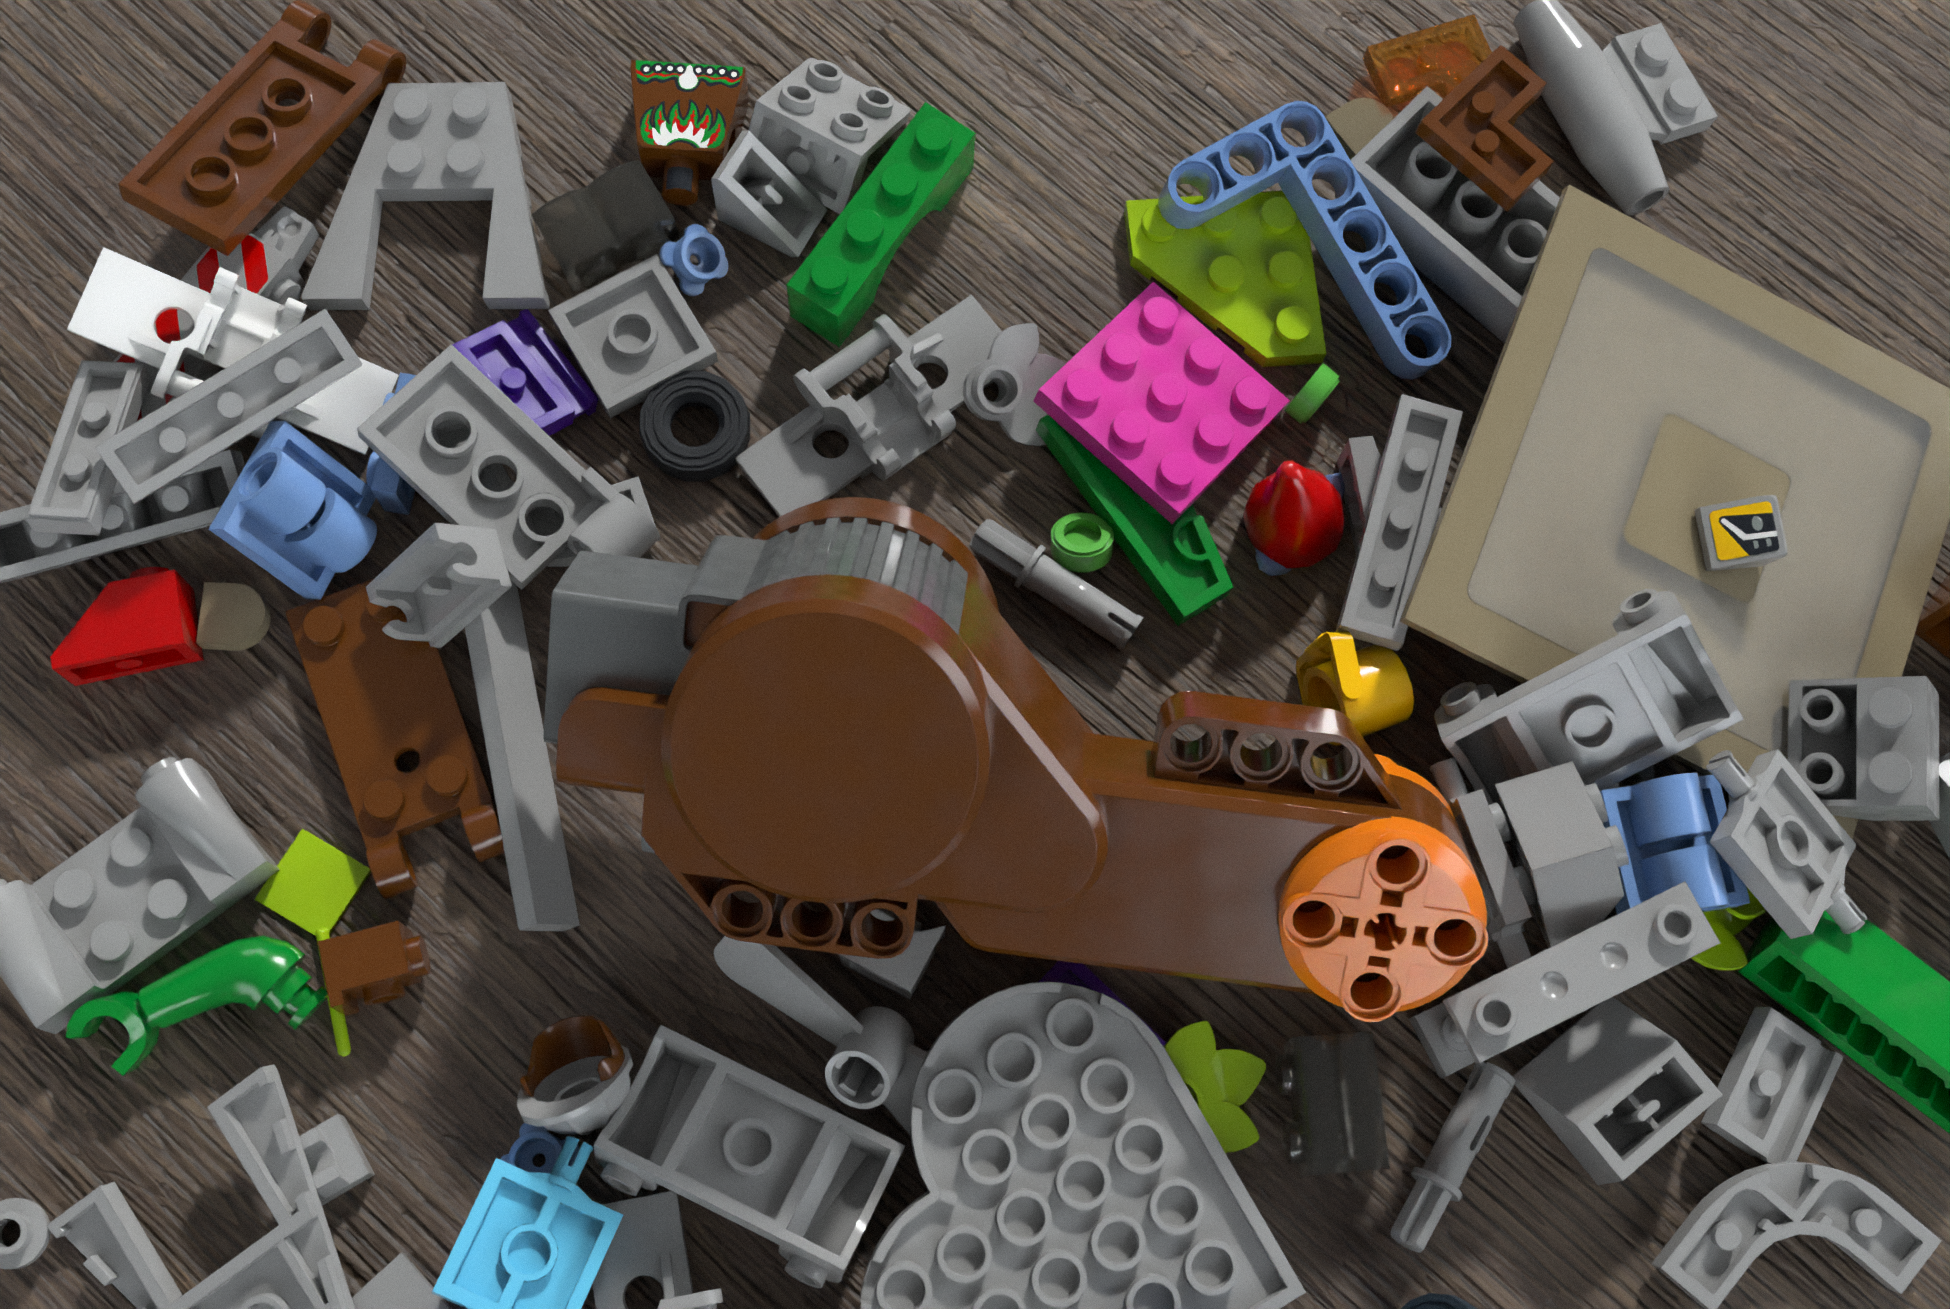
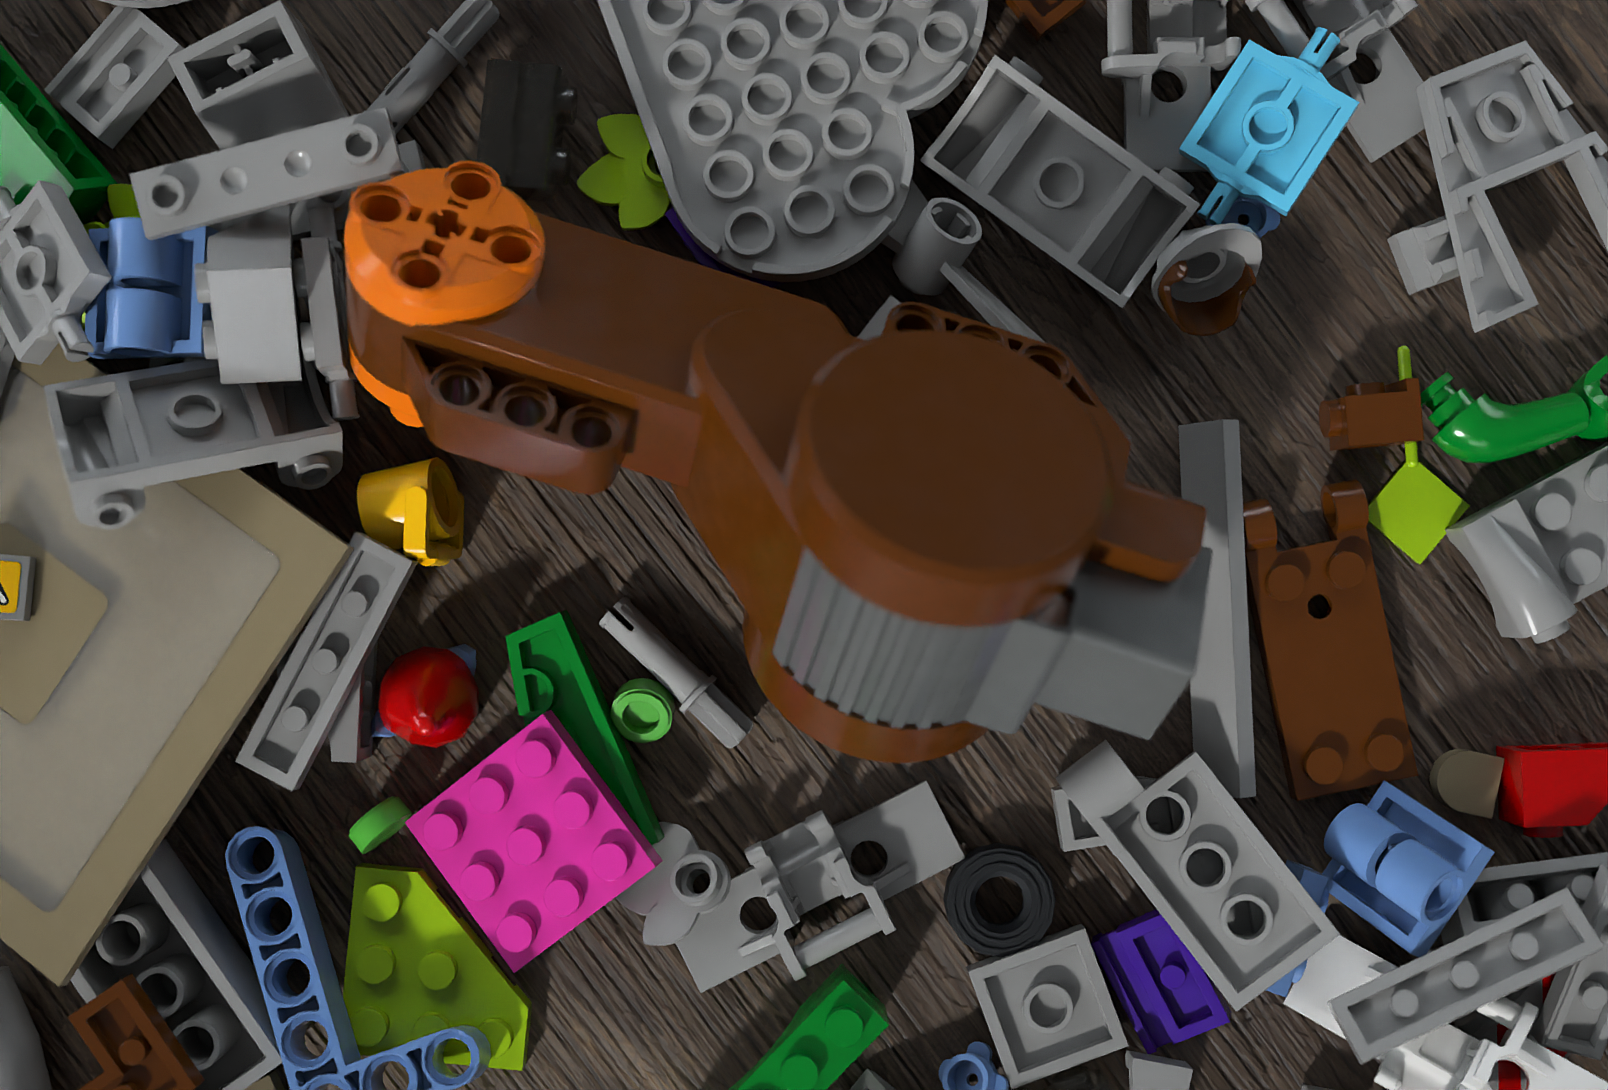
camera: 165 degrees left, 15 degrees up
(442, 582) = (1270, 763): light grey hinge -> none

